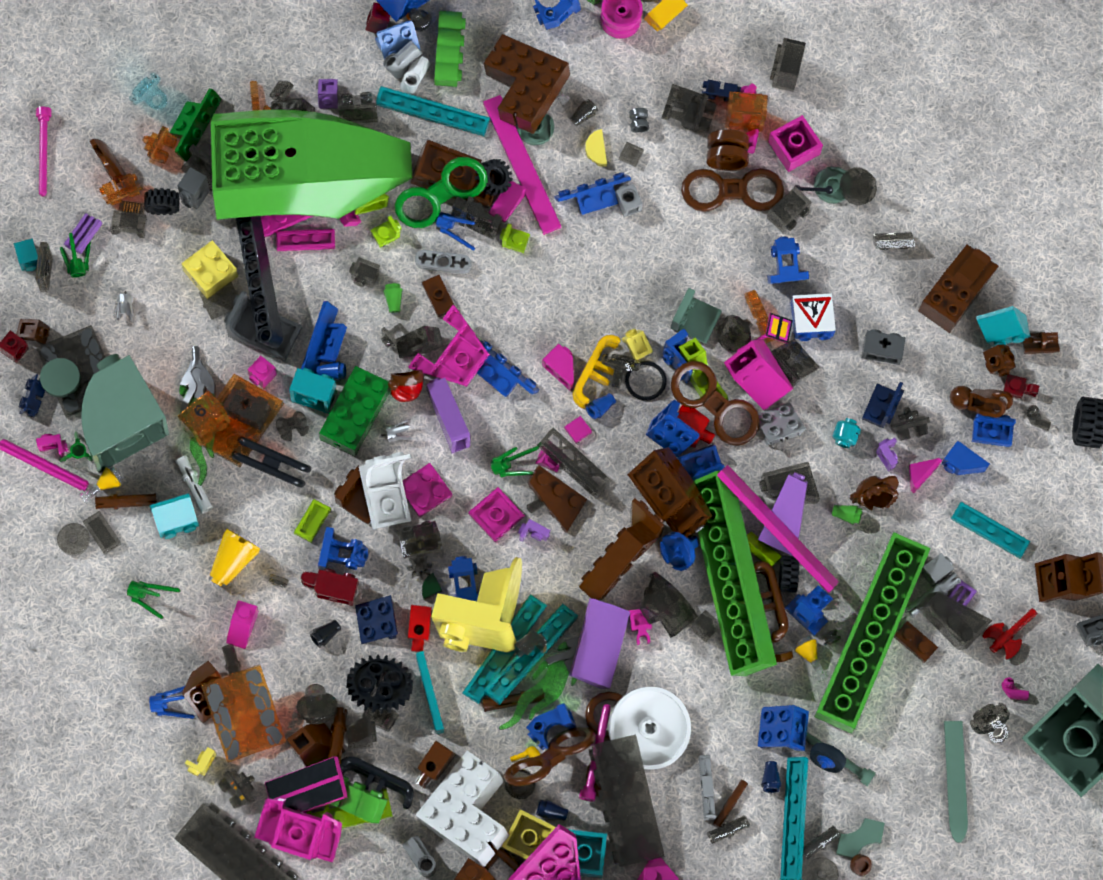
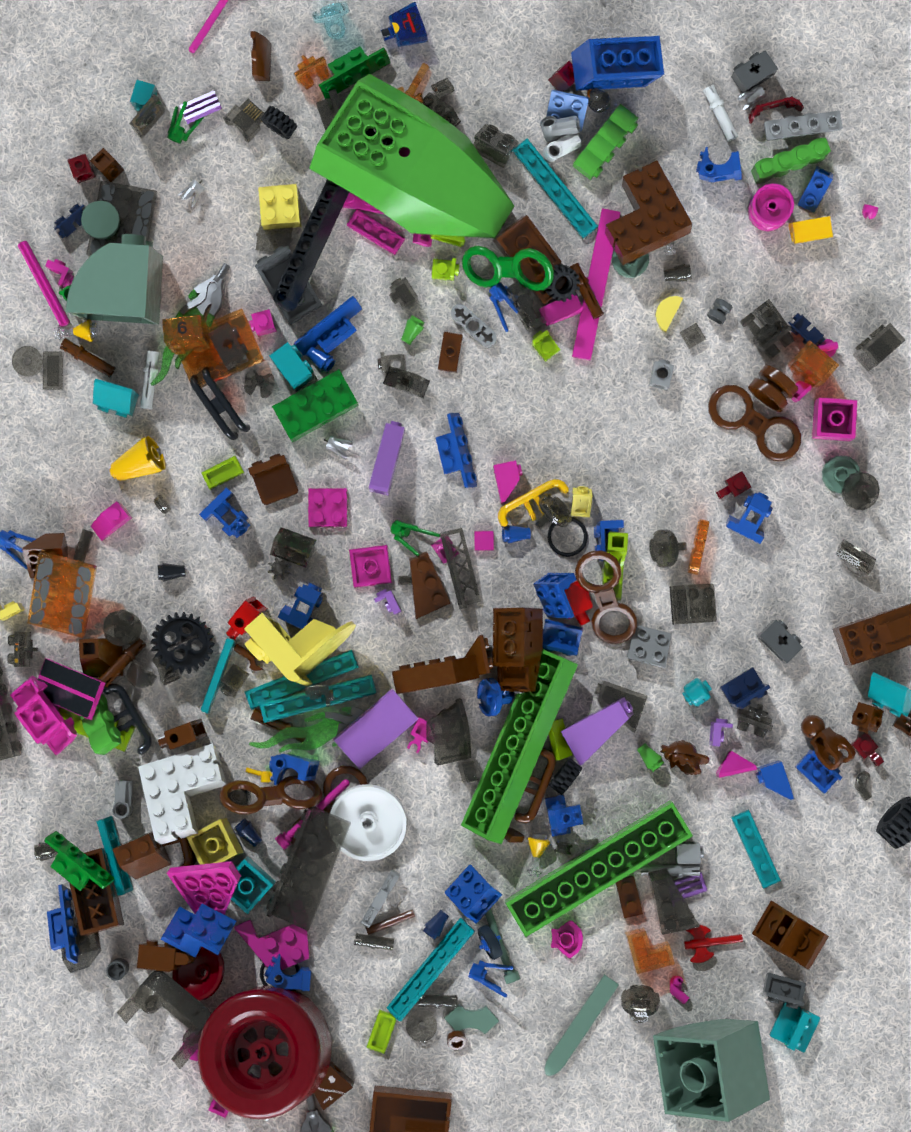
camera: 40 degrees right, 15 degrees up
(130, 189) = (246, 90): clear orange hinge -> none
(140, 589) = (49, 439): green plant -> none
(193, 188) = (310, 128): dark grey brick -> none
(216, 61) = (406, 27): none -> clear blue torso
(327, 93) = (479, 115): medium lavender bracket -> none
(332, 586) = (200, 538): dark red hinge -> none
(376, 620) = (217, 588): dark blue hinge -> none
(385, 490) = (292, 490): white bracket -> none
(406, 386) = (370, 411): piece -> none
(430, 587) = (278, 589): dark green tile -> none
(446, 689) = (233, 681): none -> clear smoke bracket
(447, 660) = (248, 655): none -> reddish brown bar
(460, 358) = (431, 418): dark pink wing -> none
(523, 175) = (587, 293): none -> reddish brown pin
(594, 196) = (637, 352): blue bracket -> none
(695, 317) = (644, 513): sand green bracket -> none
(754, 249) = (736, 485): none -> dark red plate
(759, 373) = (660, 596): dark pink slope -> none
(777, 328) = (704, 568): piece -> none
(778, 528) = (580, 737): dark pink tile -> none
(795, 201) = (798, 468): clear smoke brick -> none
(813, 316) = (740, 577): piece -> none
(829, 190) = (833, 477): black hinge -> none
(838, 794) = (479, 973): none -> blue plant
(891, 712) = (567, 939): none -> dark pink animal
(962, 679) = (645, 956): none -> clear orange brick

